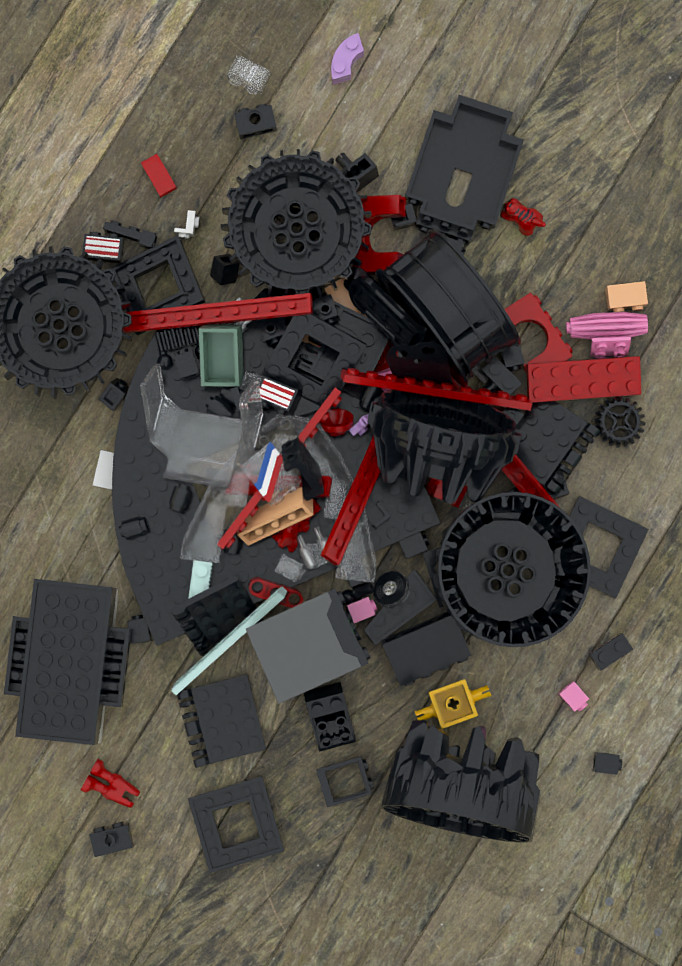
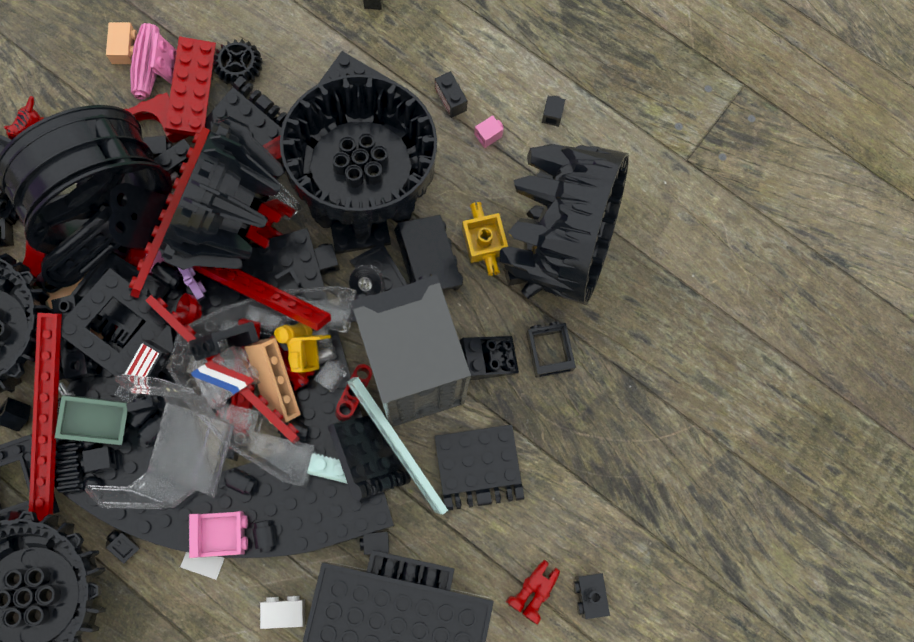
camera: 90 degrees left, 10 degrees down
(68, 552) = (282, 613): none -> white brick
(131, 485) = (217, 534): none -> bright pink panel
(222, 858) = (607, 433): black plate -> none
(309, 539) = (301, 346): none -> yellow piece

